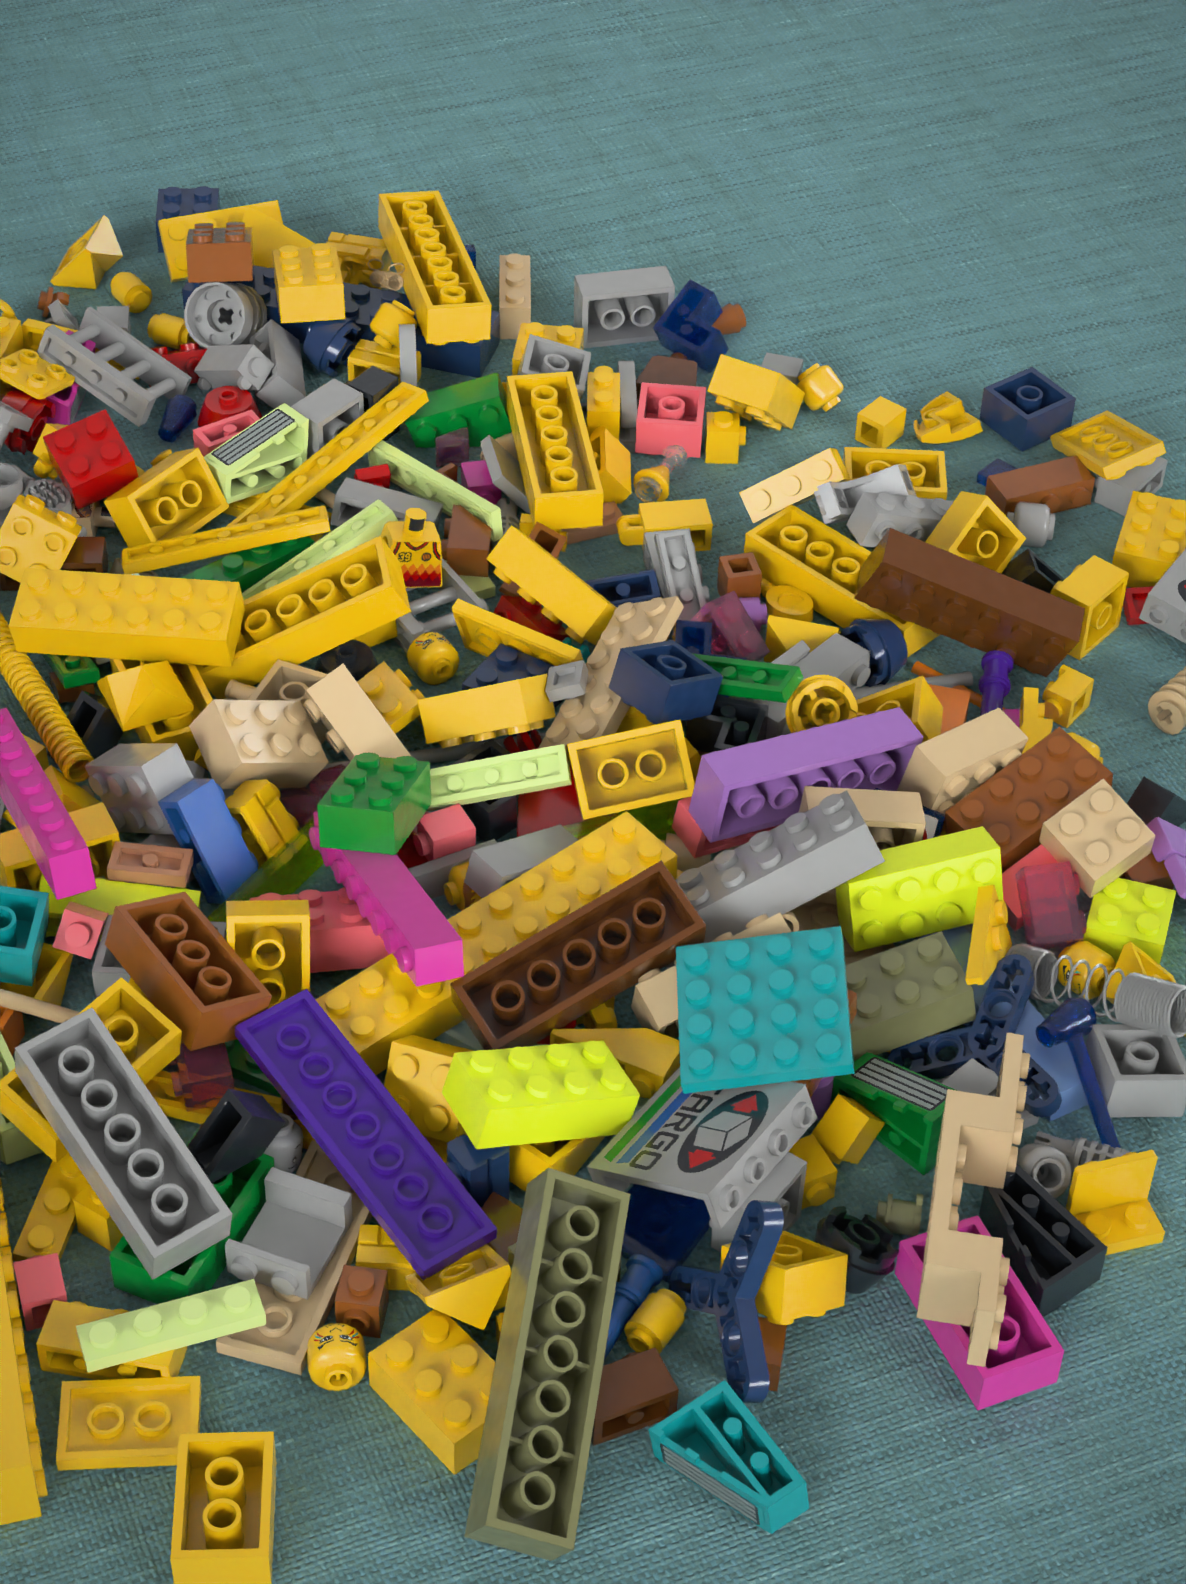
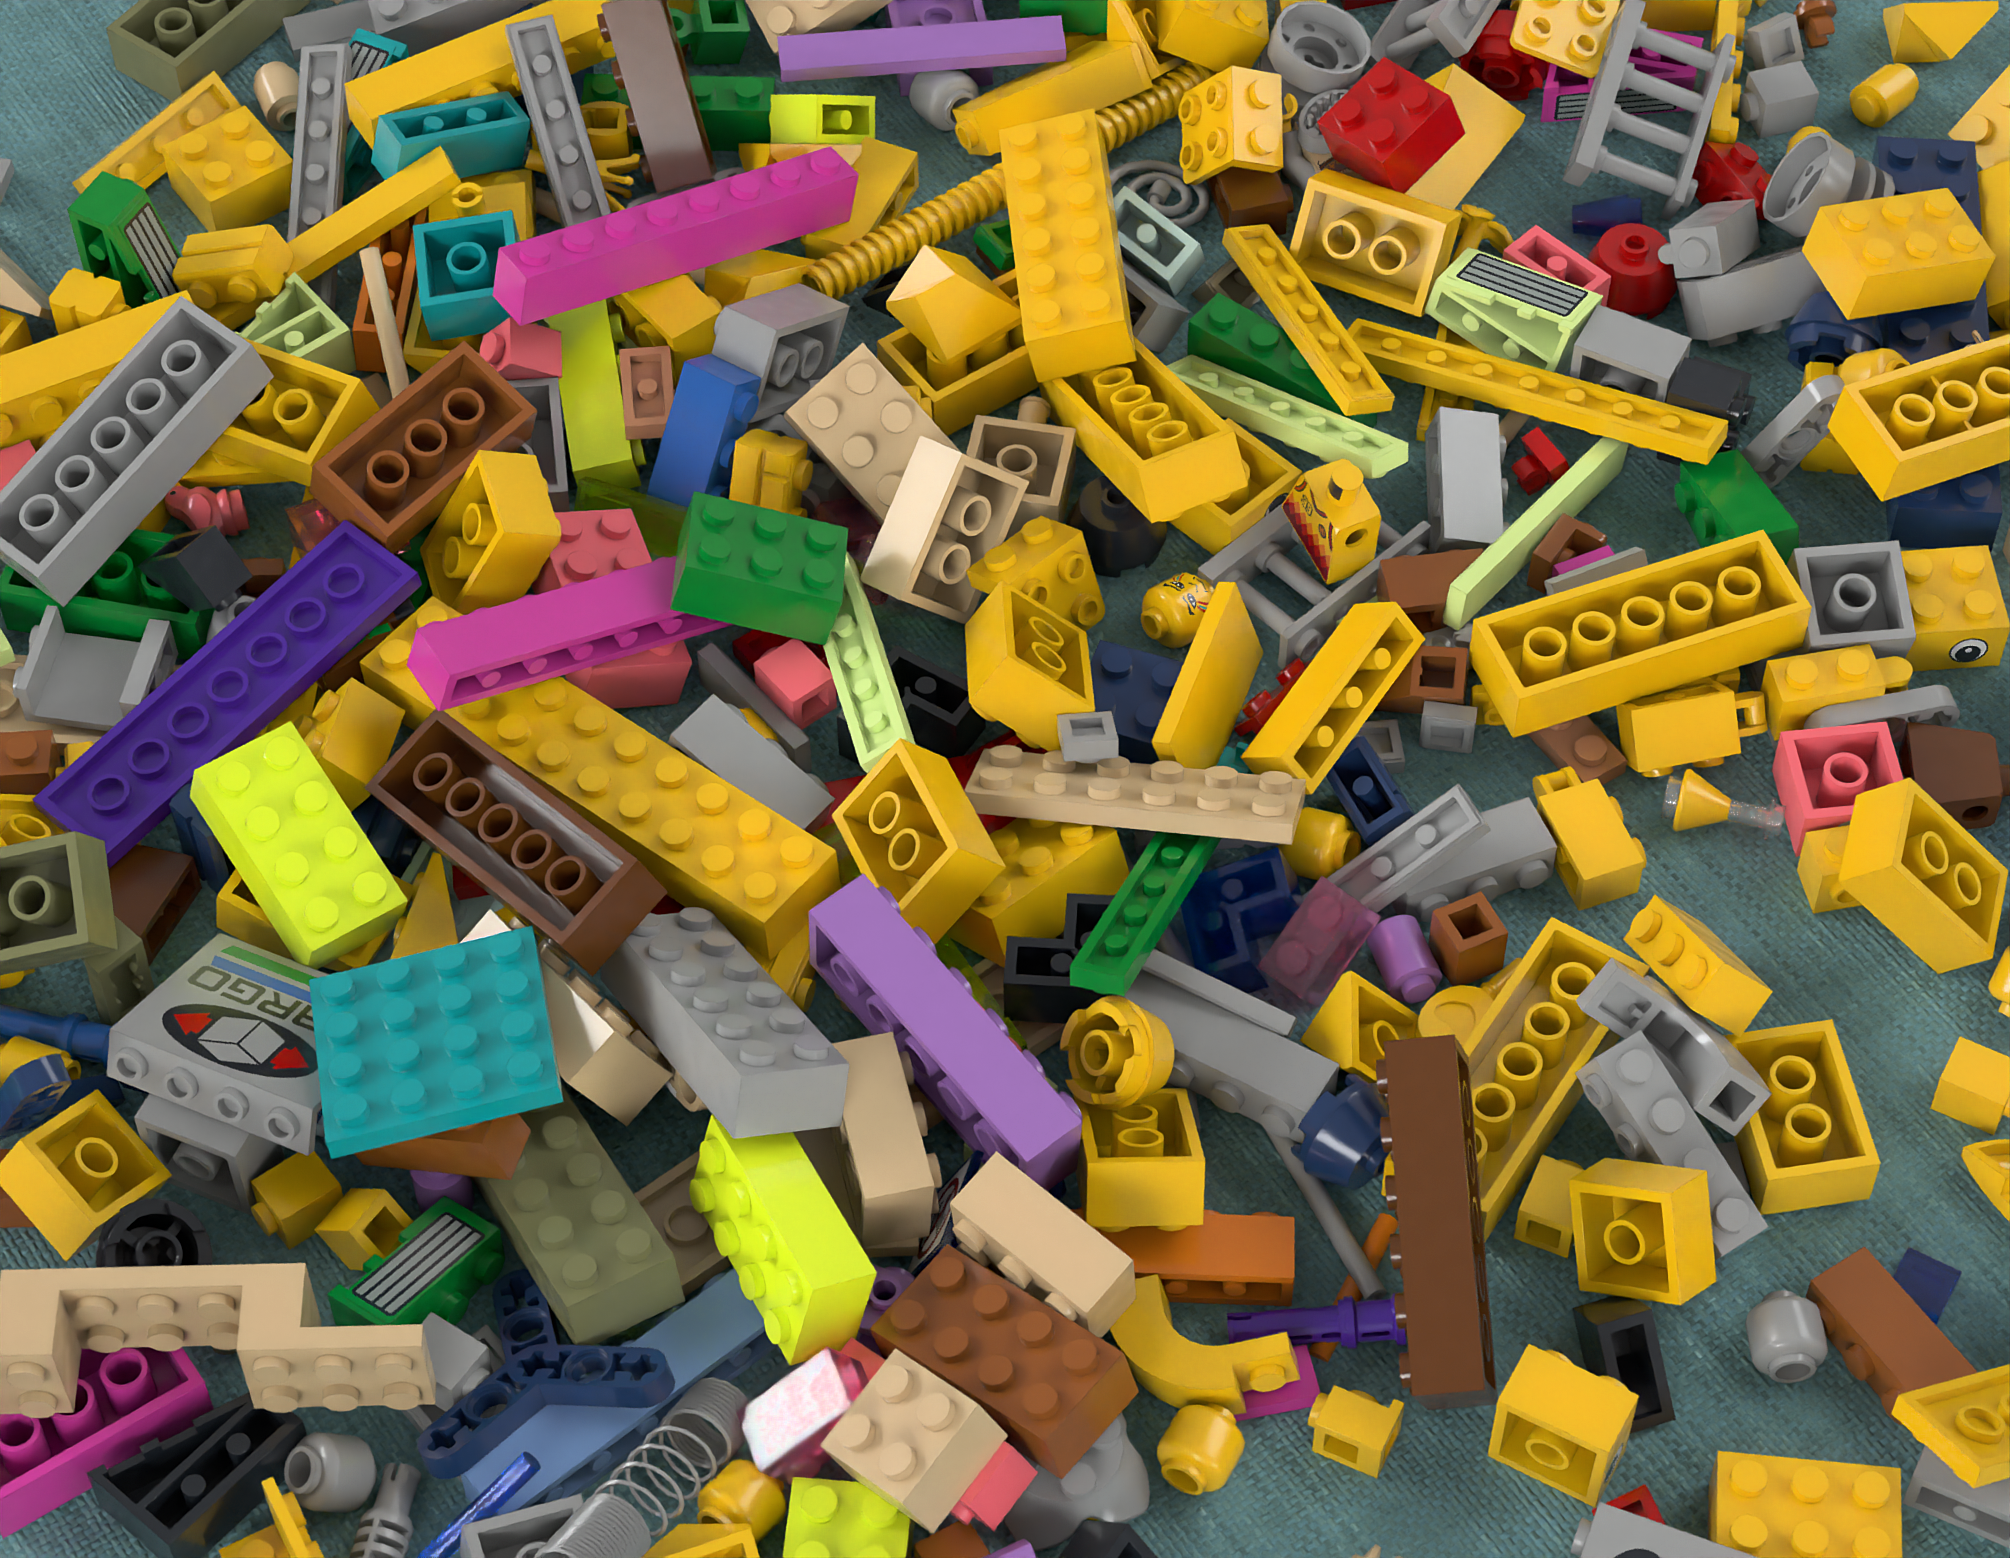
camera: 80 degrees right, 10 degrees up
(220, 253) = (1907, 133): dark orange brick -> none
(452, 448) = (1667, 535): clear pink slope -> none
(571, 555) = (1448, 727): none -> light grey tile
(665, 682) = (1072, 832): dark blue brick -> none
(989, 936) = (704, 1329): yellow wing -> none
(1068, 1019) = (574, 1458): clear blue cone -> none

